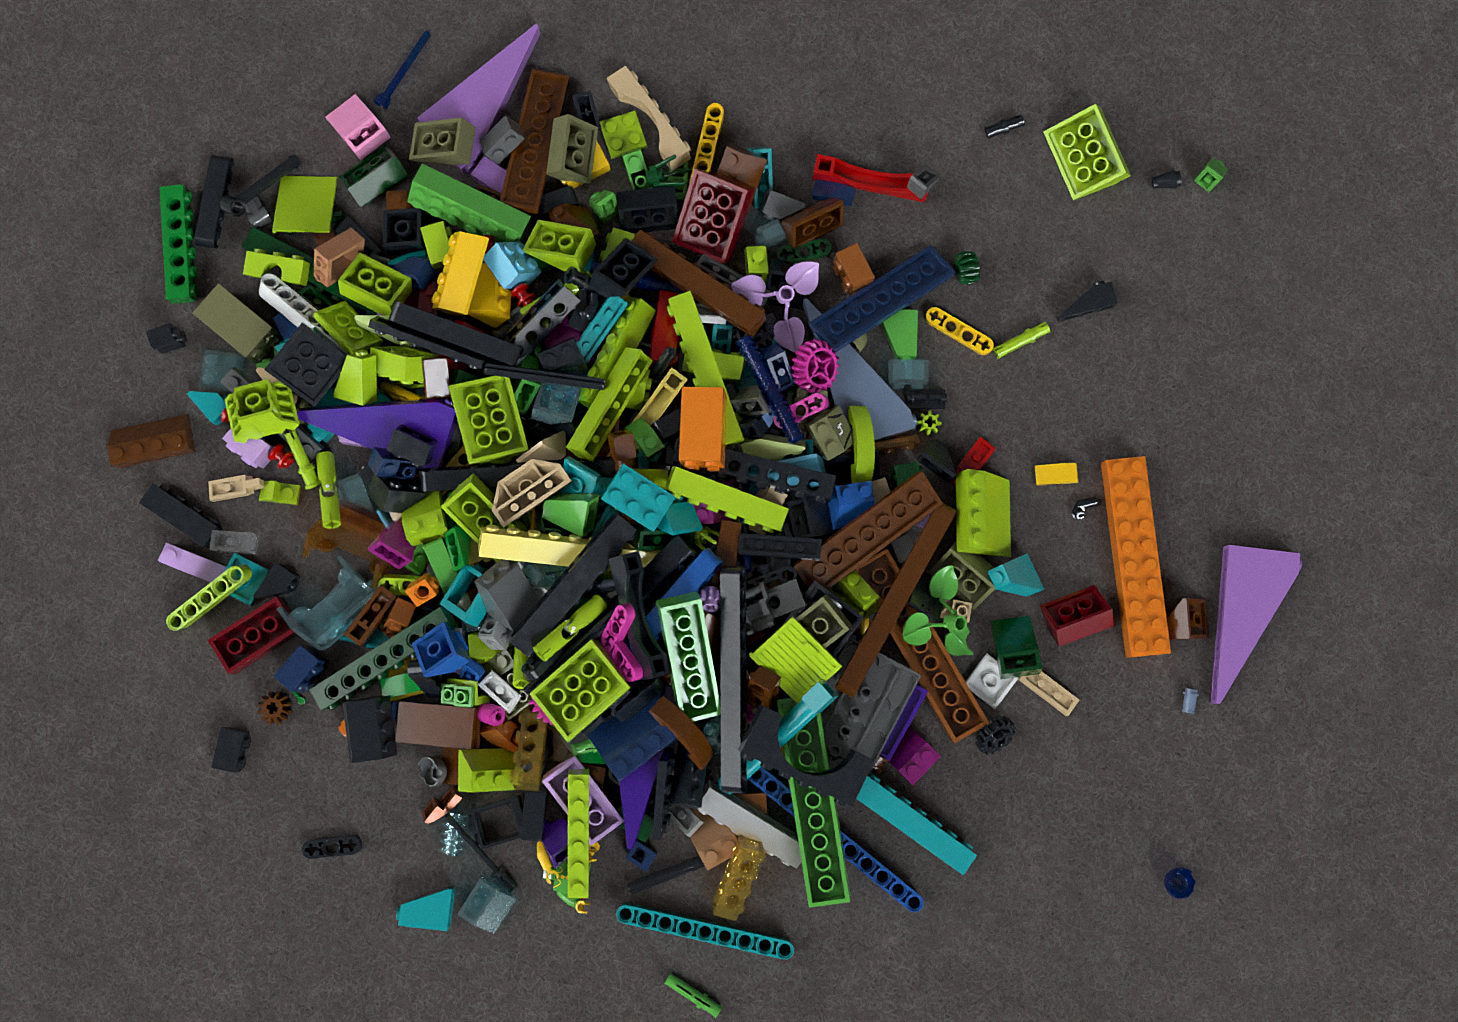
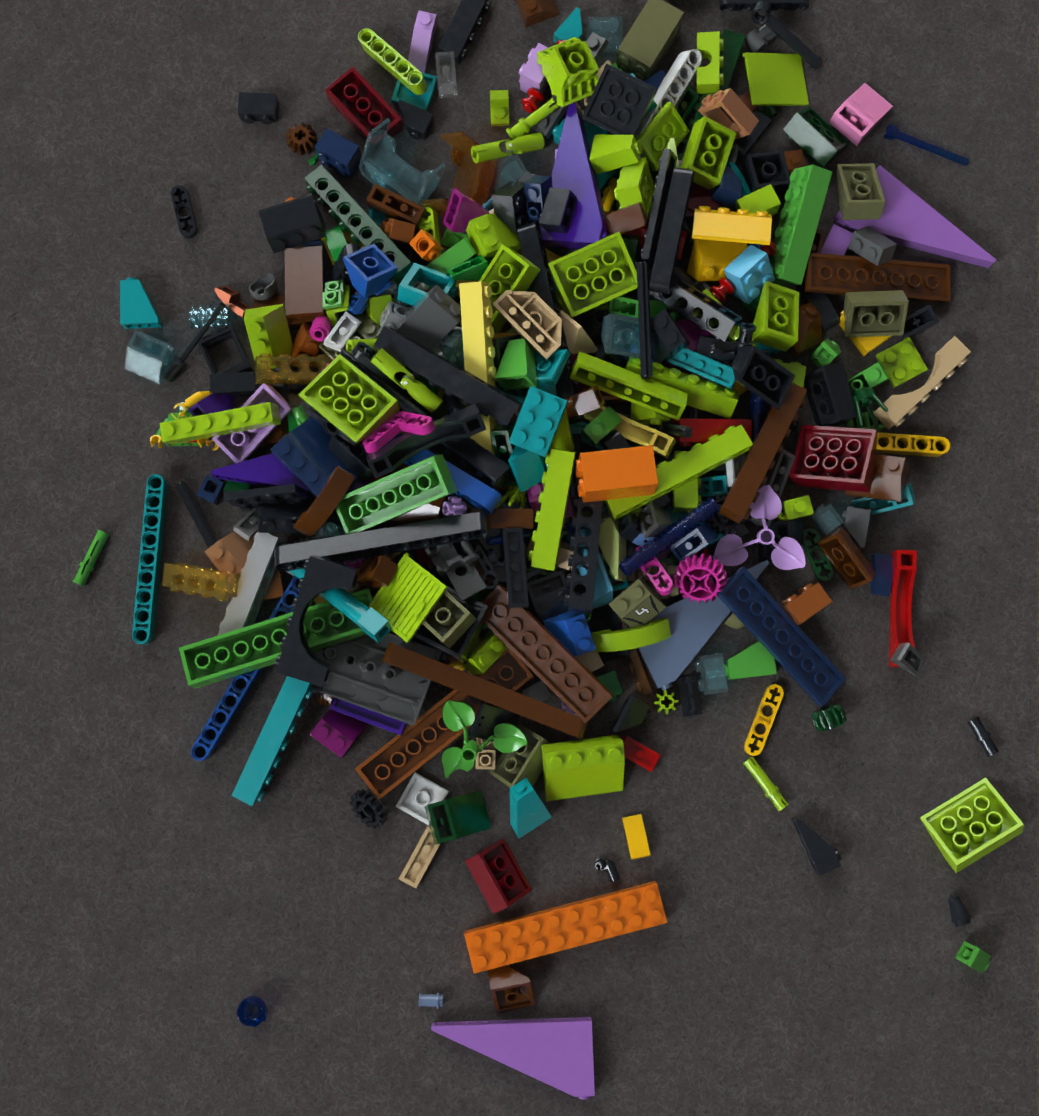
camera: 85 degrees right, 0 degrees up
(233, 487) = (497, 65): tan hinge -> none

